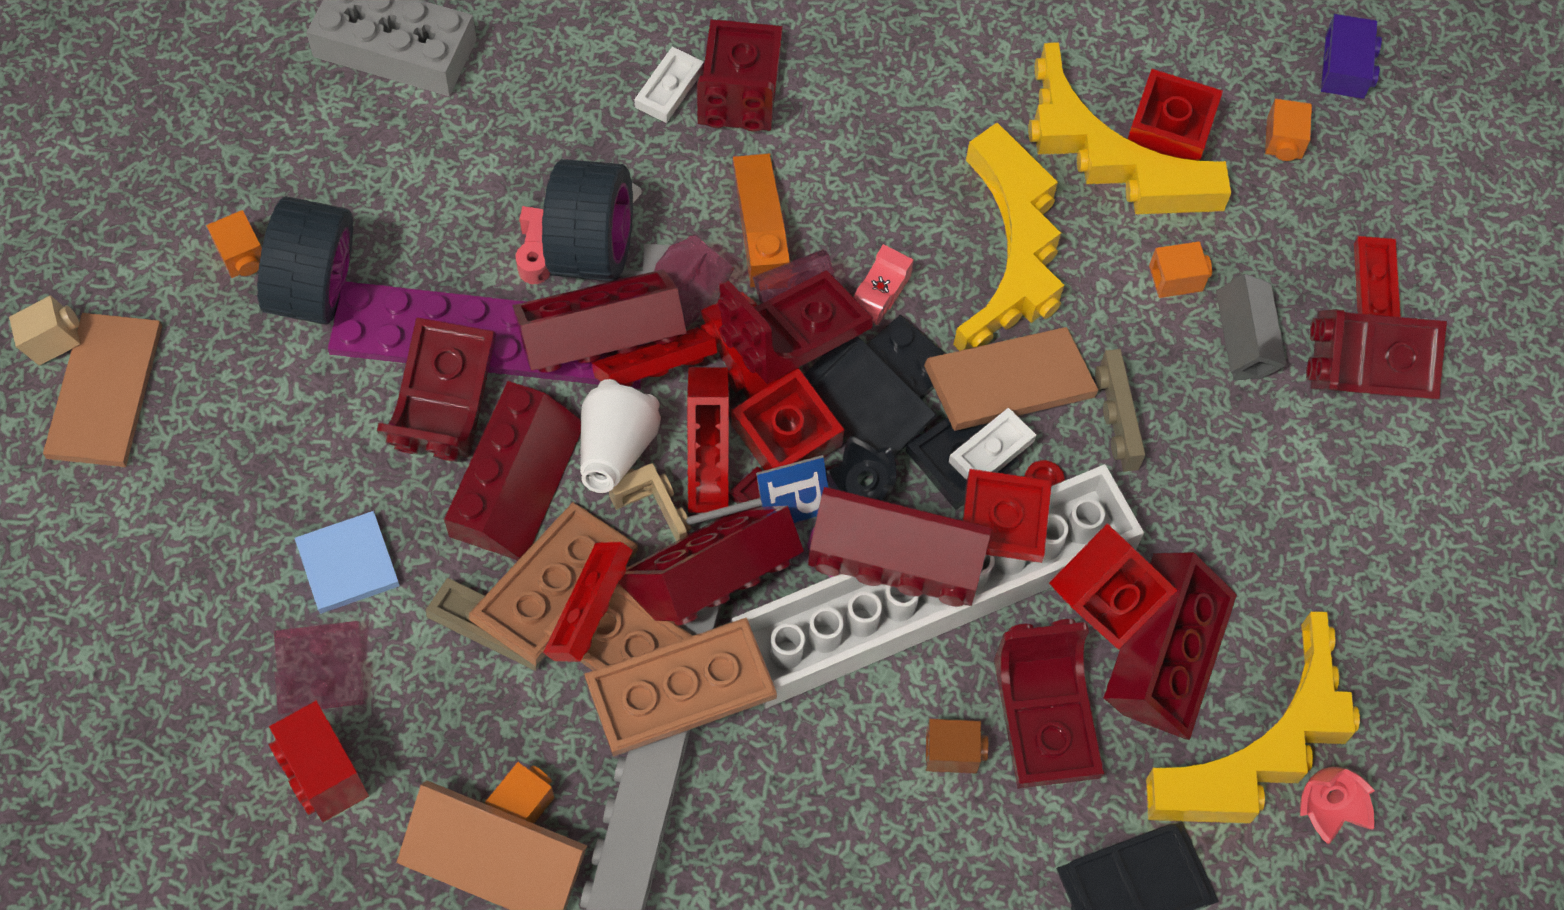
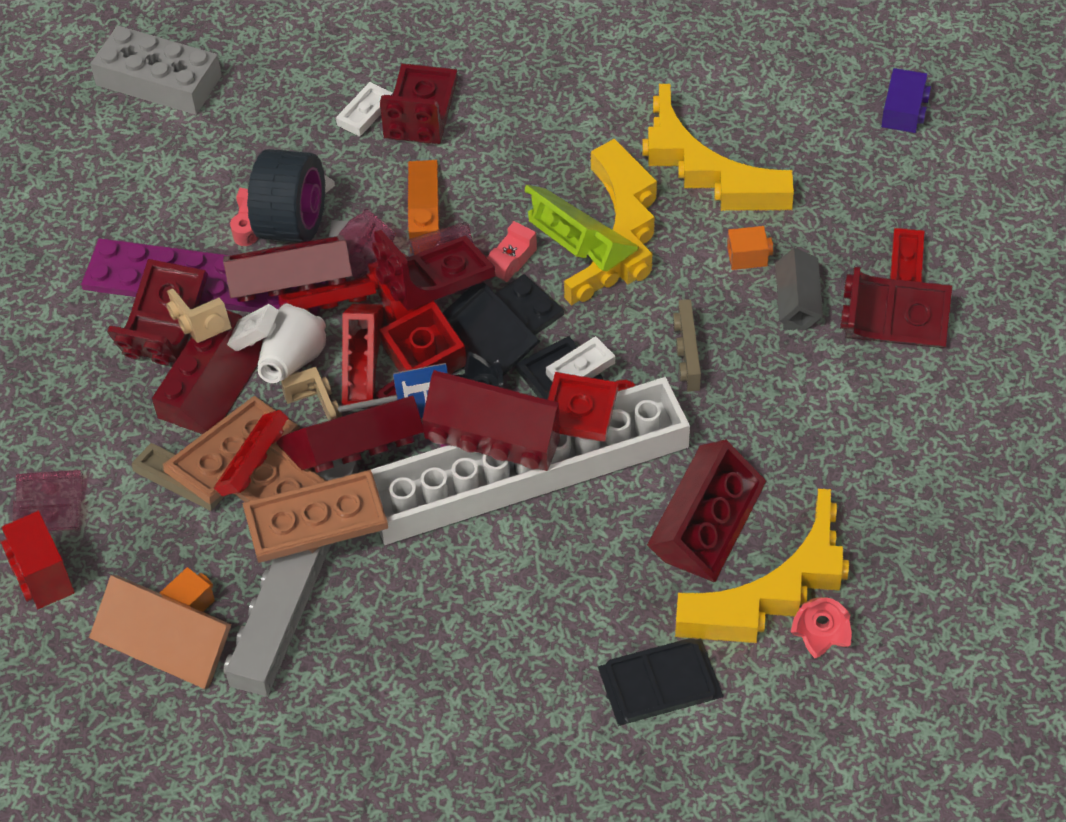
camera: 10 degrees right, 10 degrees down
(236, 244) = (21, 210): orange brick -> none
(305, 260) = (69, 217): black wheel -> none
(346, 562) = (77, 431): light blue tile -> none
(499, 413) = (201, 321): none -> tan bracket
(568, 416) = (253, 327): none -> white plate
(955, 746) = (526, 574): dark orange brick -> none
(963, 253) = (577, 230): none -> lime wedge
(1011, 374) = (610, 316): nougat tile -> none
(1047, 704) = (602, 544): dark red bracket -> none
(1112, 586) = (660, 461): red brick -> none
(1175, 116) = (756, 137): red brick -> none
(1288, 129) = (848, 151): orange brick -> none

